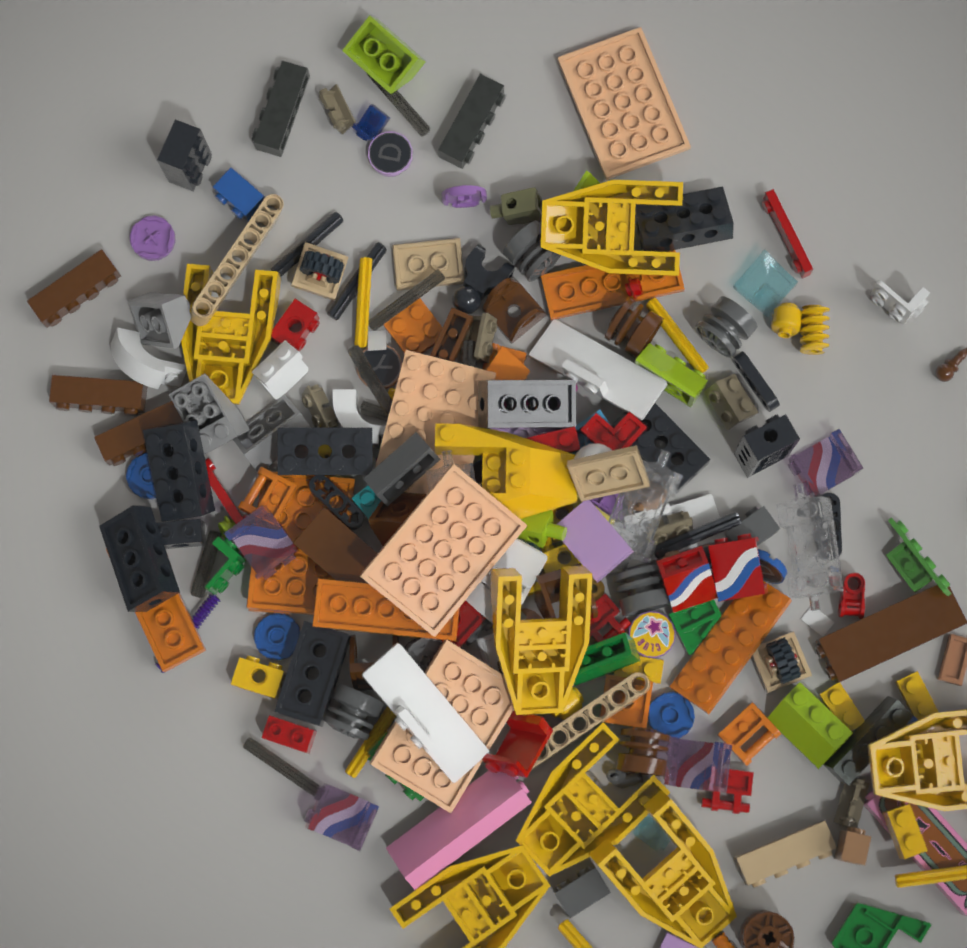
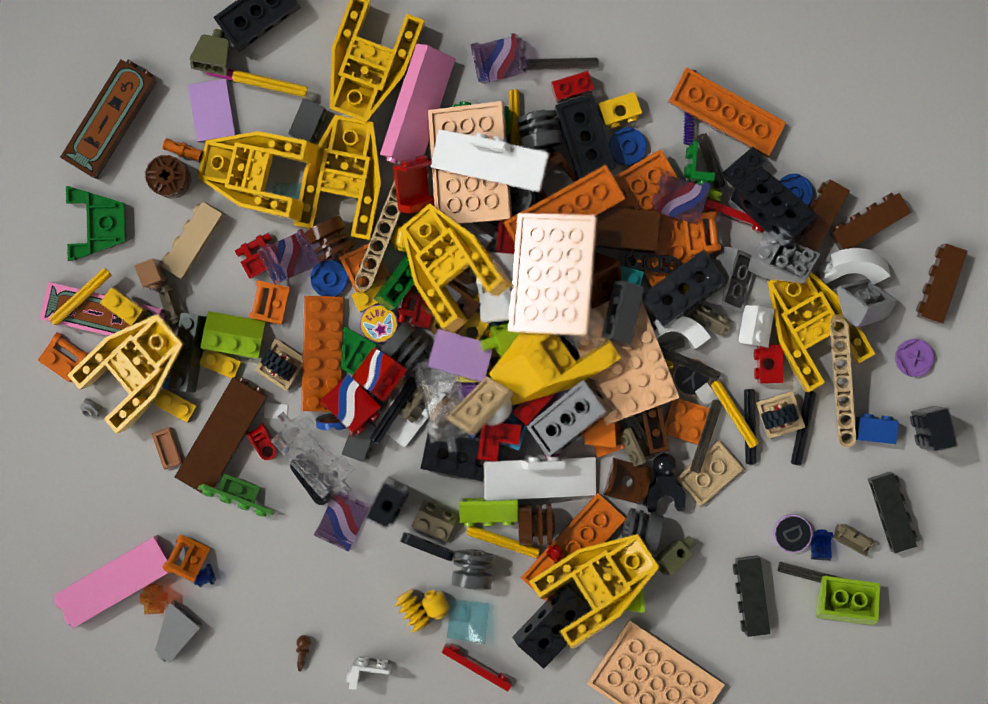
camera: 140 degrees right, 10 degrees up
(139, 559) = (756, 128): black brick -> none
(464, 196) = (718, 537): medium lavender tile -> none
(623, 779) = (332, 212): dark grey arm -> none

